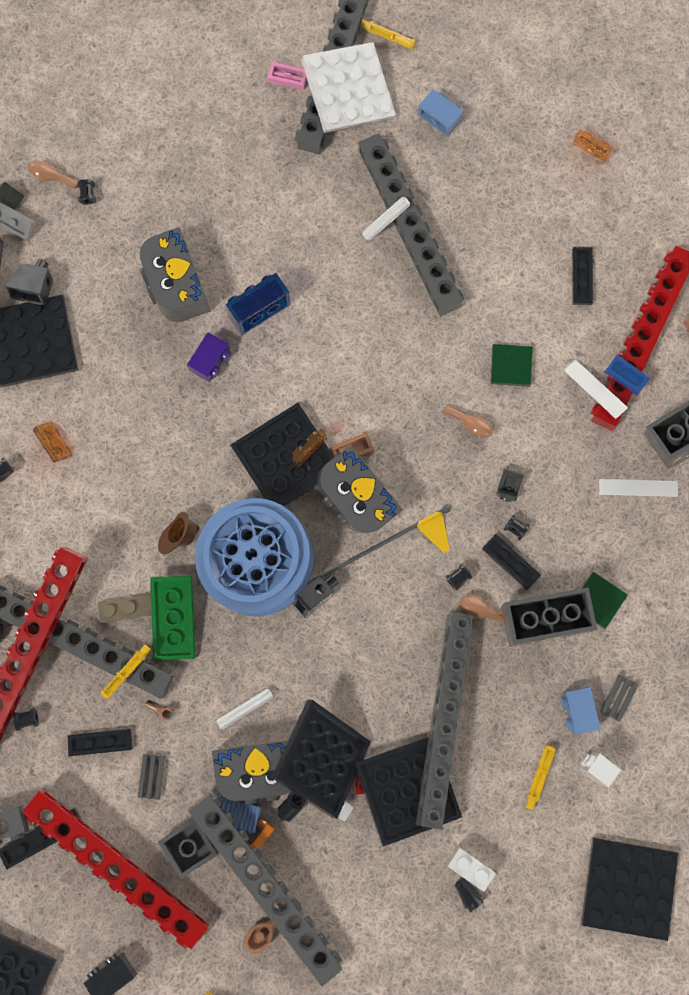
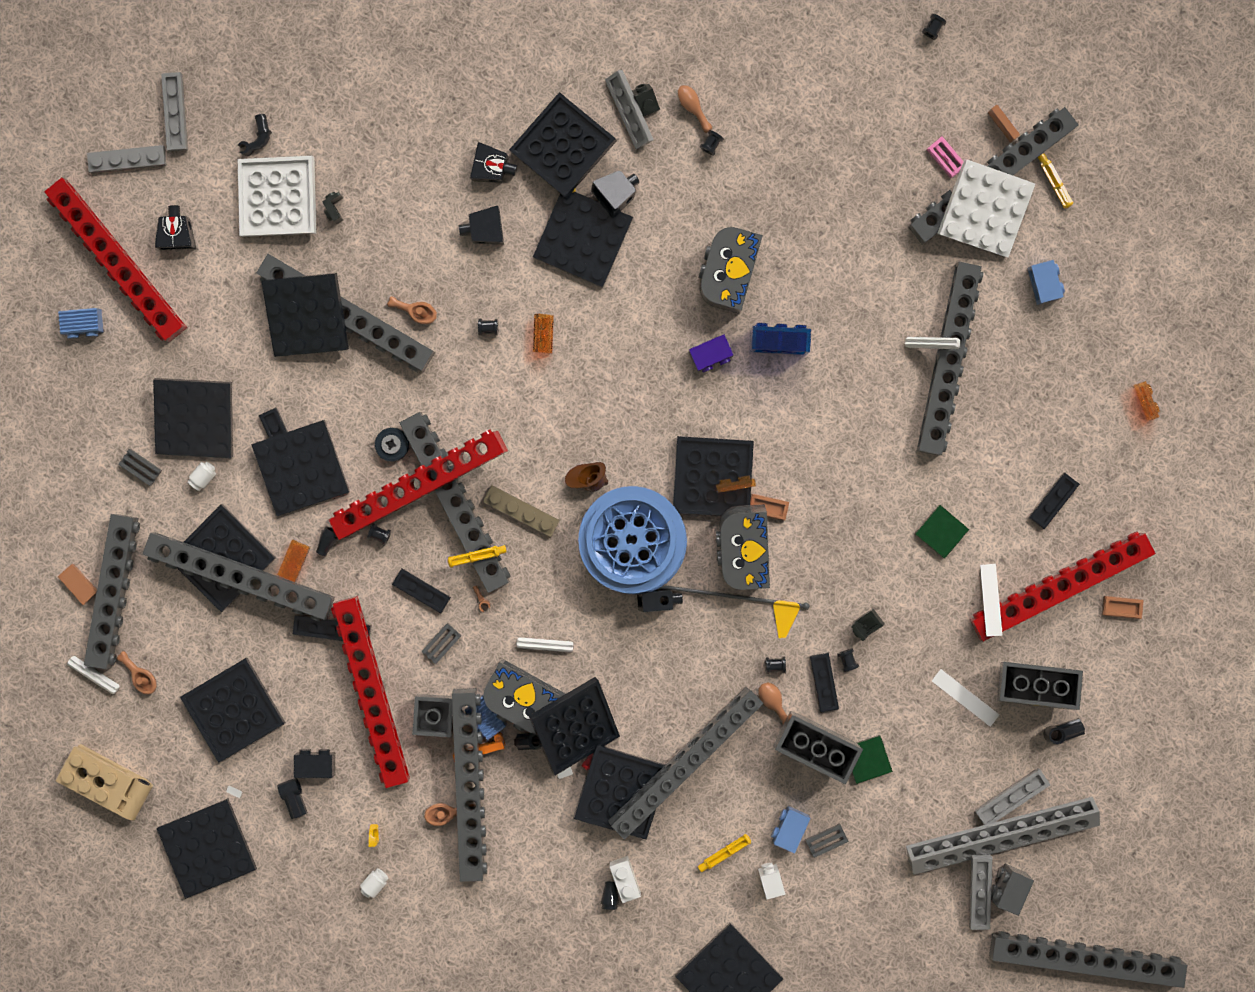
camera: 40 degrees right, 10 degrees up
(172, 617) = (539, 538): green tile -> none
(313, 18) = (1004, 123): none -> nougat tile
(474, 424) = (876, 558): nougat piece -> none
(627, 375) = (1023, 608): blue tile -> none

